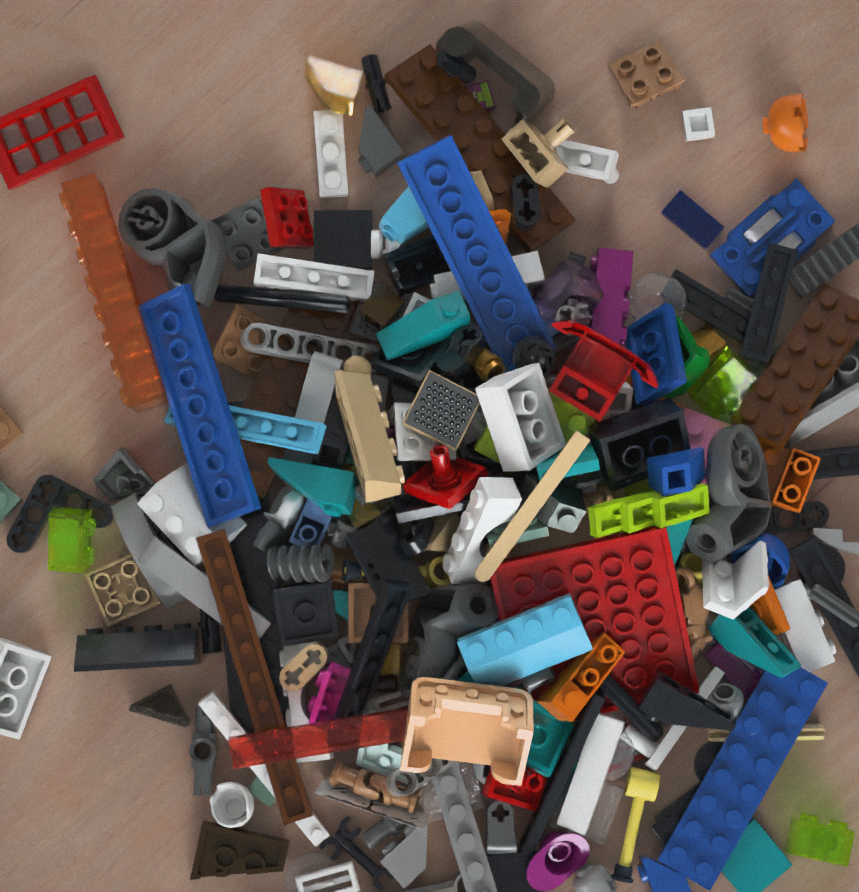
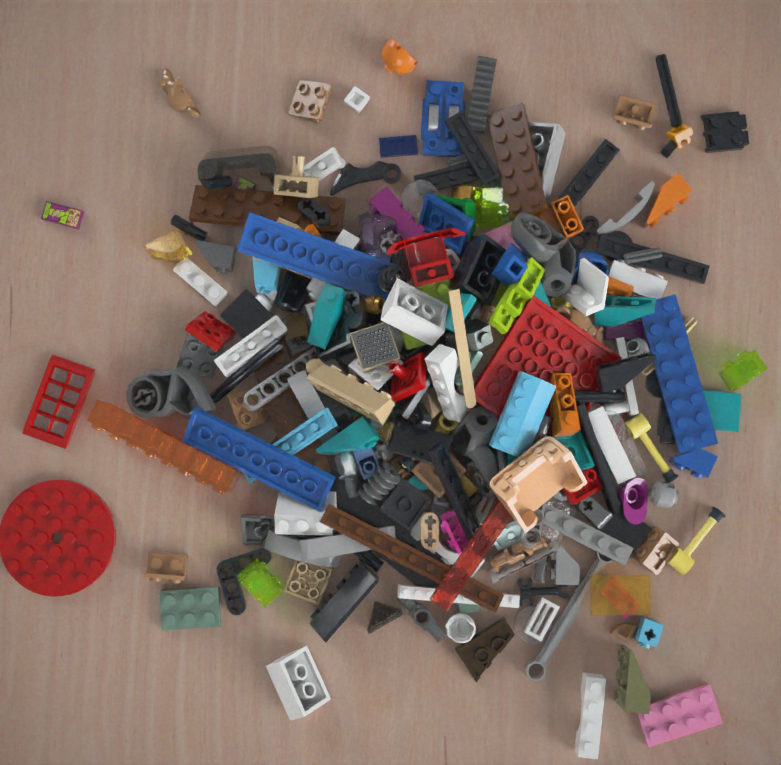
camera: 45 degrees left, 0 degrees up
(610, 202) = (353, 175): none -> black piece

